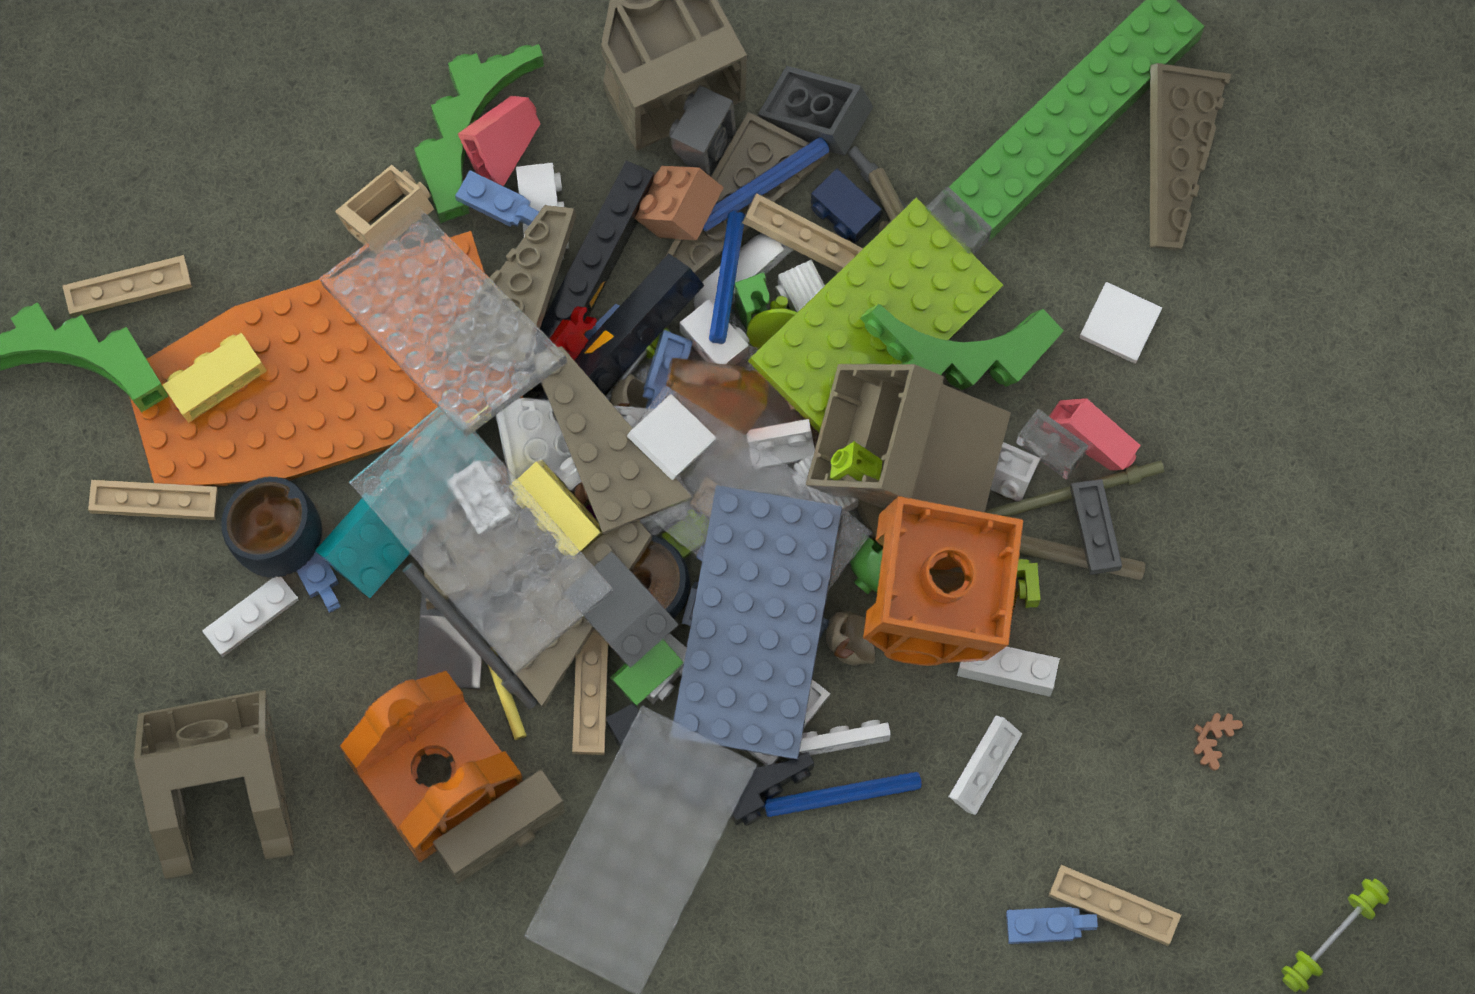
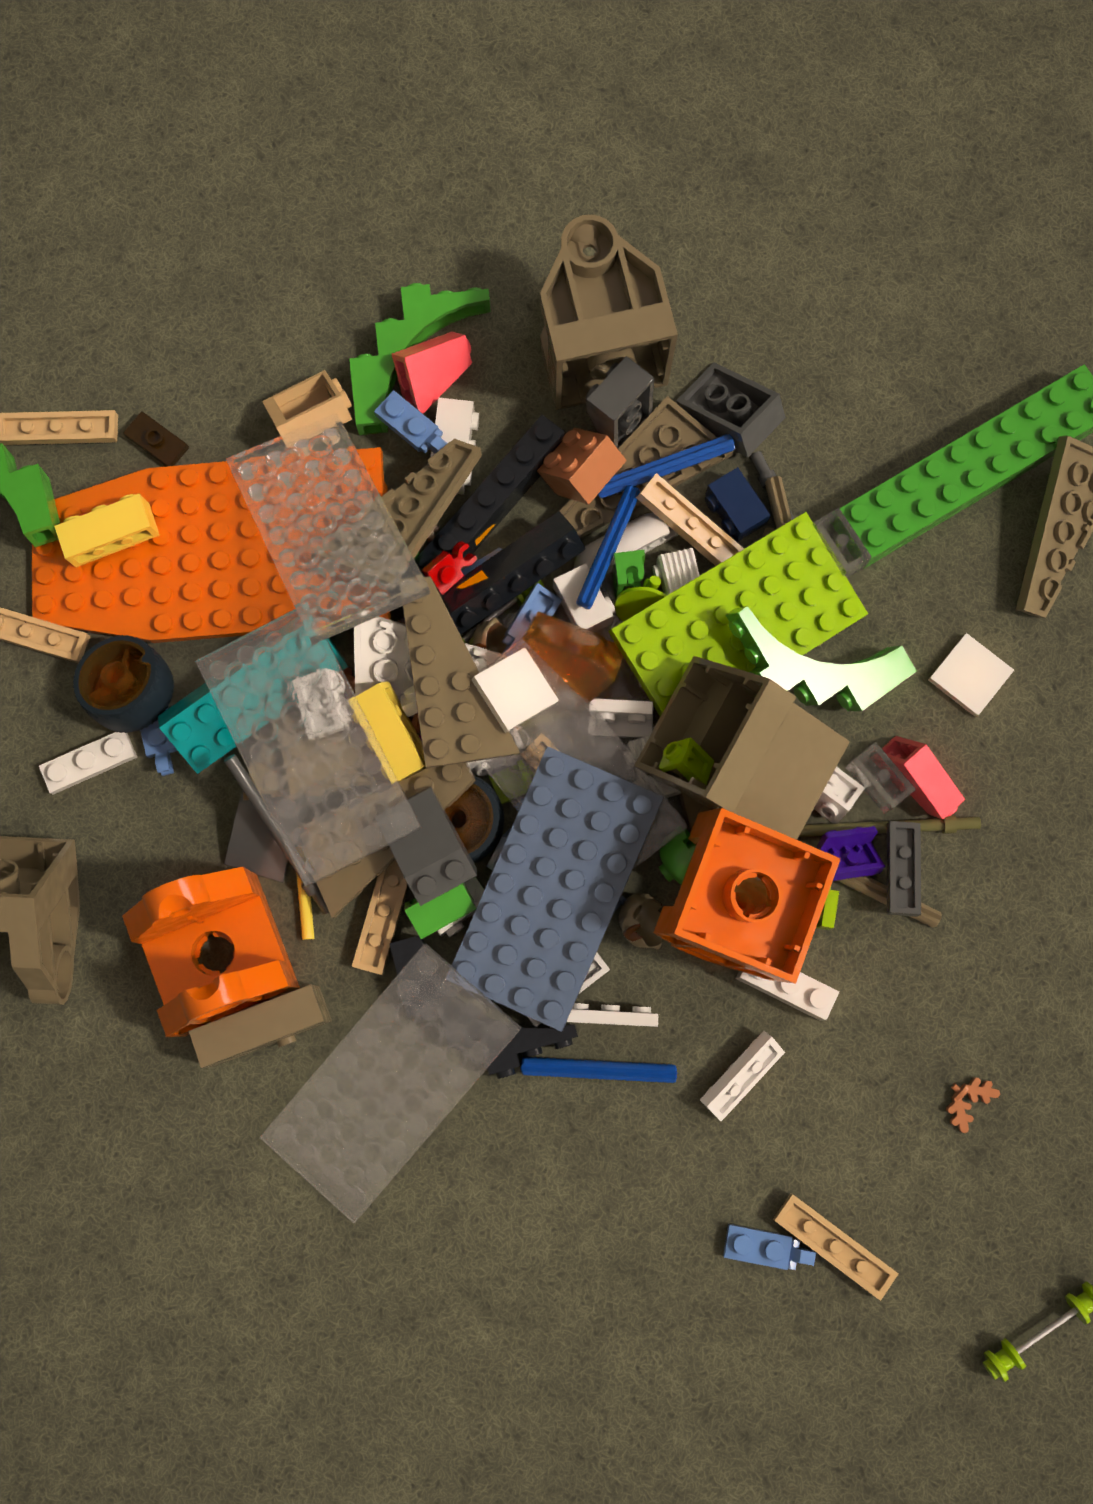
camera: 15 degrees right, 5 degrees up
(232, 275) = (156, 440): none -> dark brown plate
(1042, 523) = (855, 851): none -> dark purple bracket

